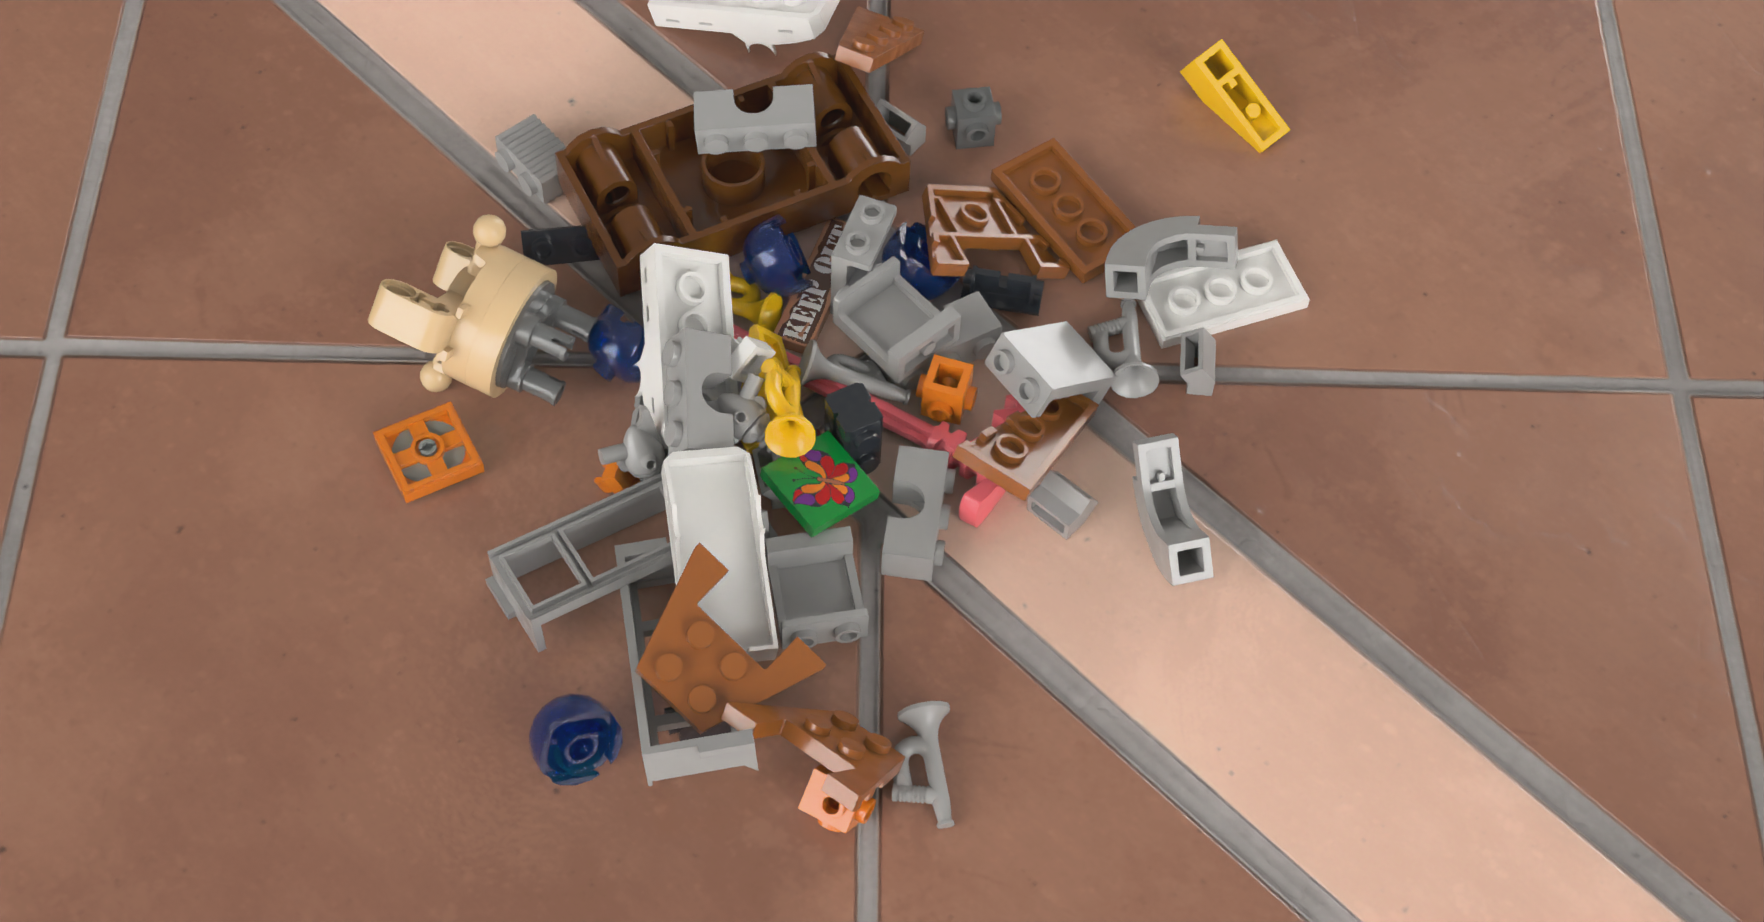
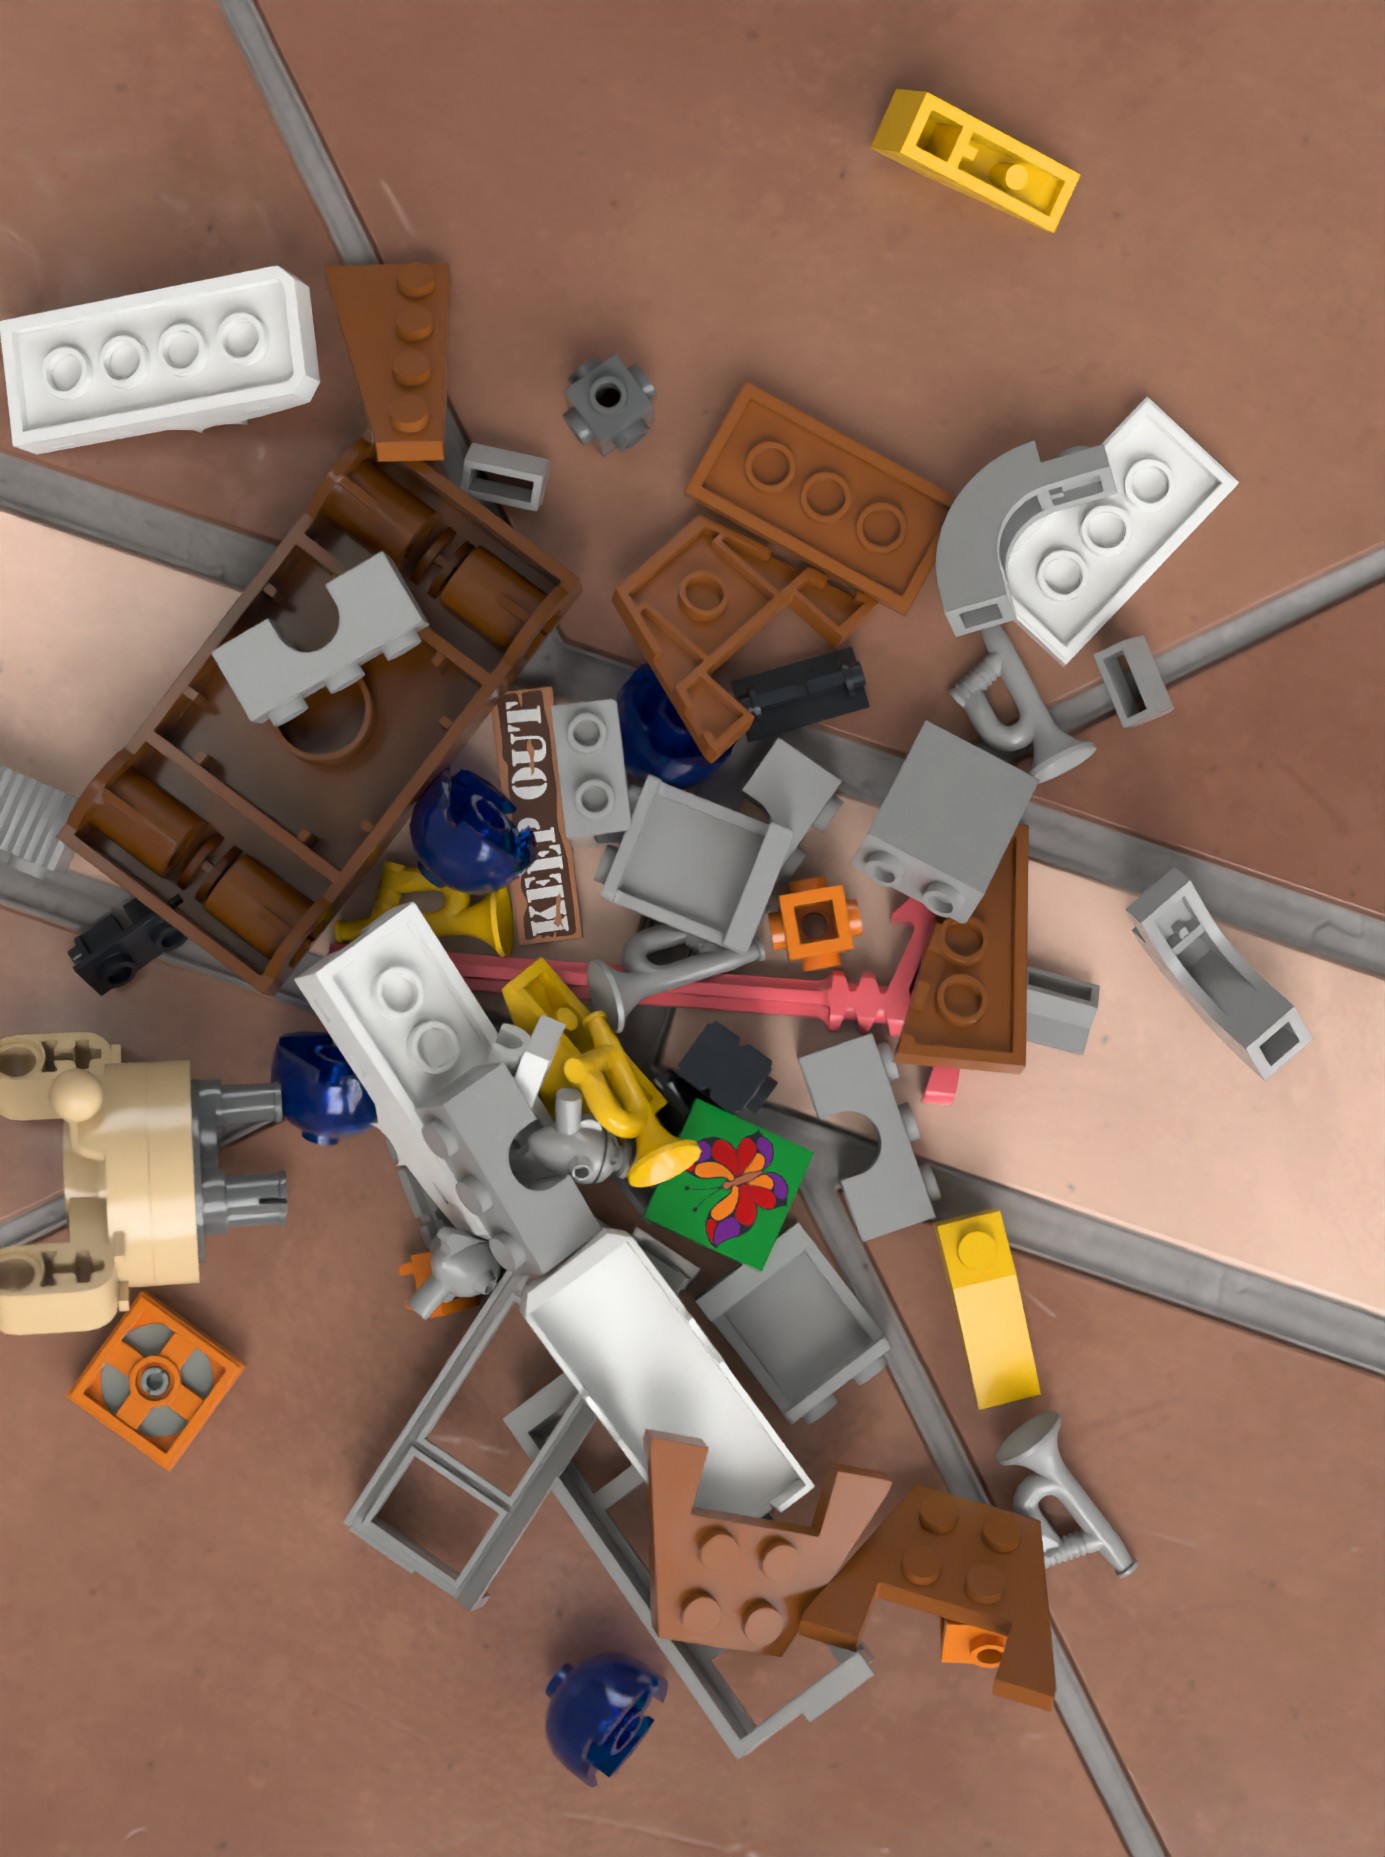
camera: 20 degrees left, 30 degrees up
(938, 632) = (987, 1306): none -> yellow slope

